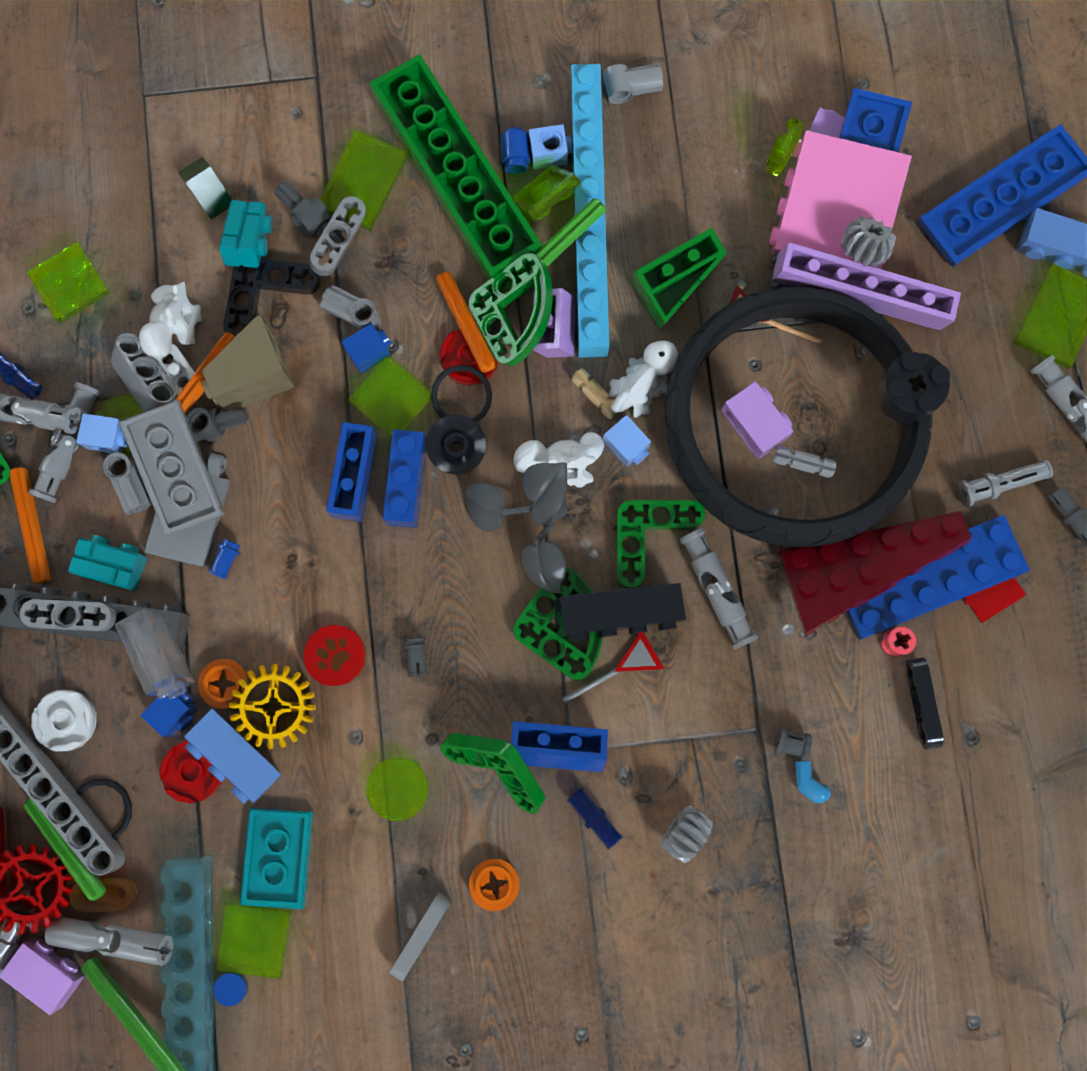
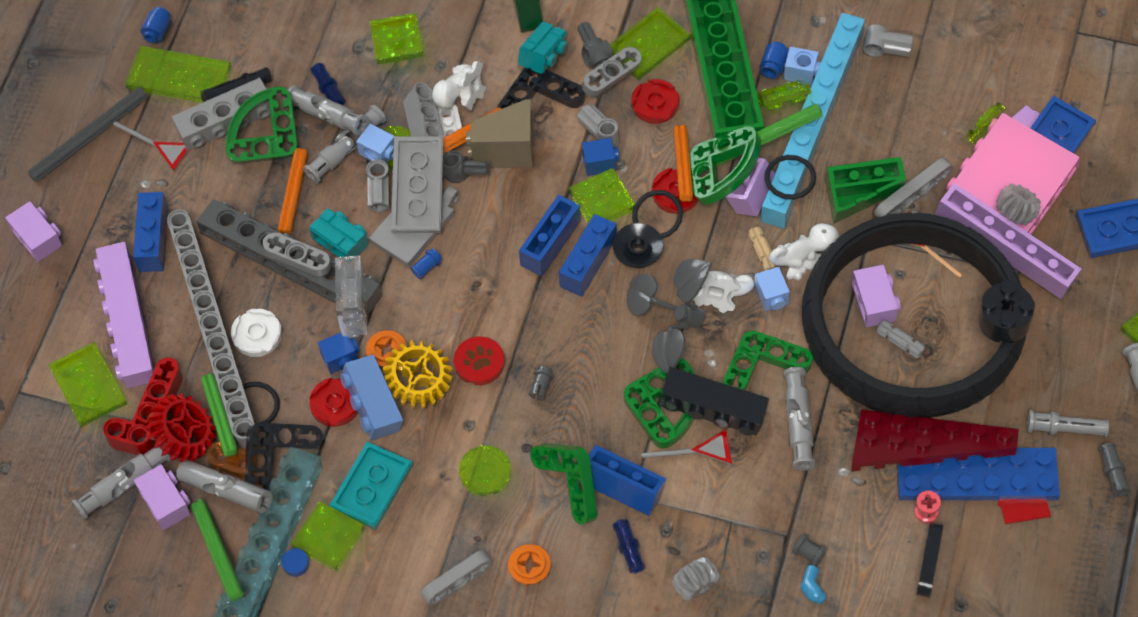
camera: 25 degrees right, 20 degrees down
(140, 861) = (272, 440): none -> black beam
(400, 251) = (655, 101): none -> red tile
(600, 273) = (790, 196): none -> black piece
(733, 258) = (915, 188): none -> light grey beam

